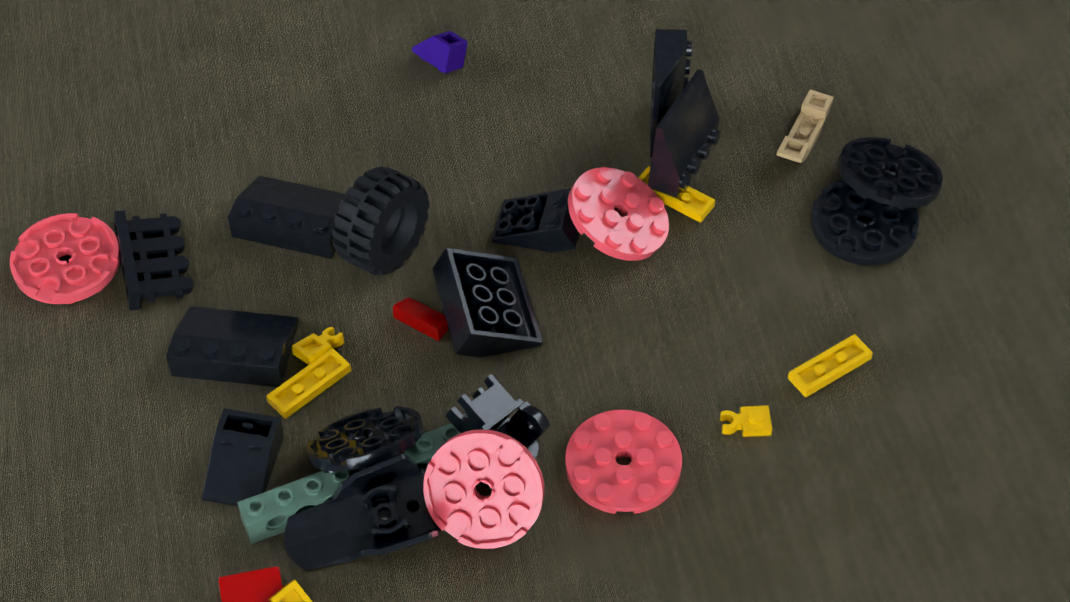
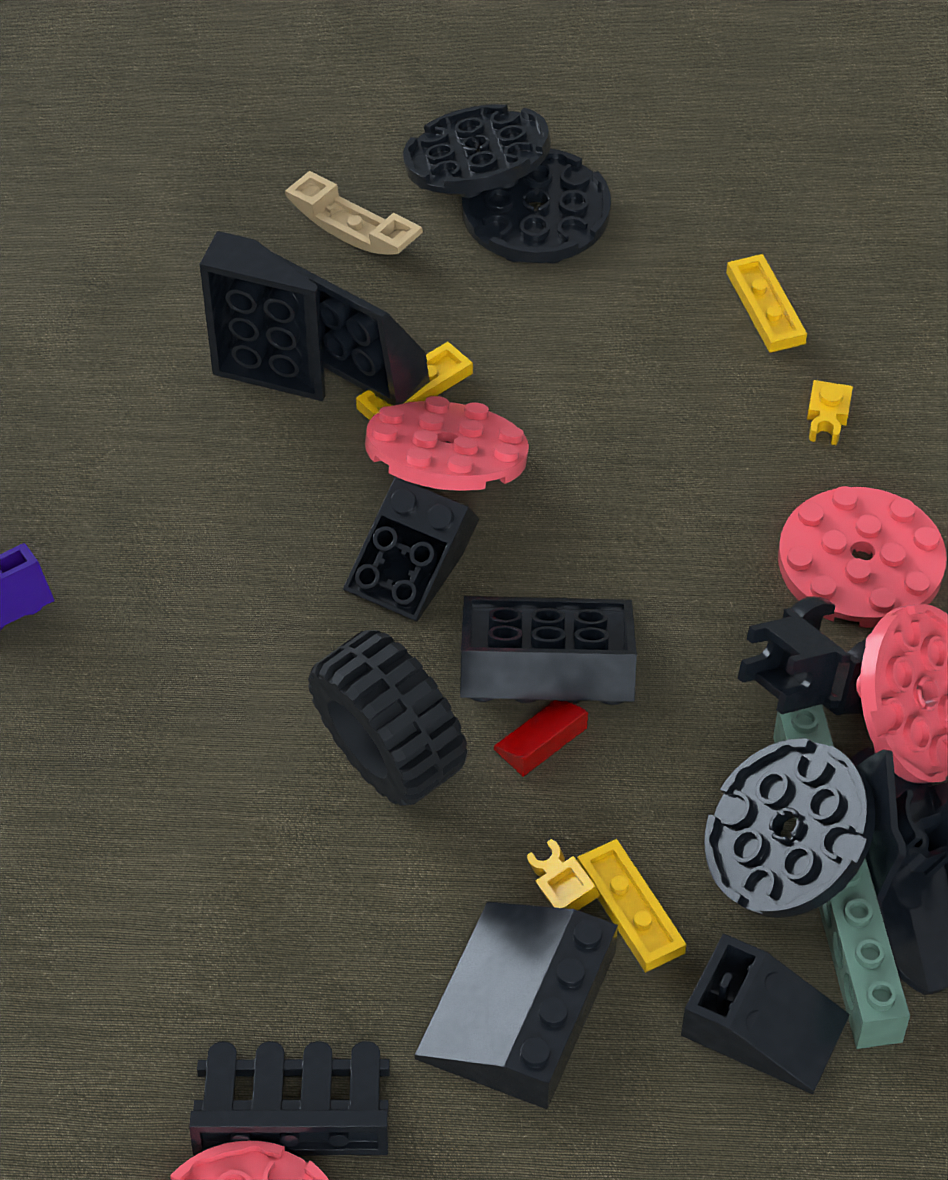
camera: 75 degrees left, 0 degrees up
(286, 216) = (274, 868): black slope -> none

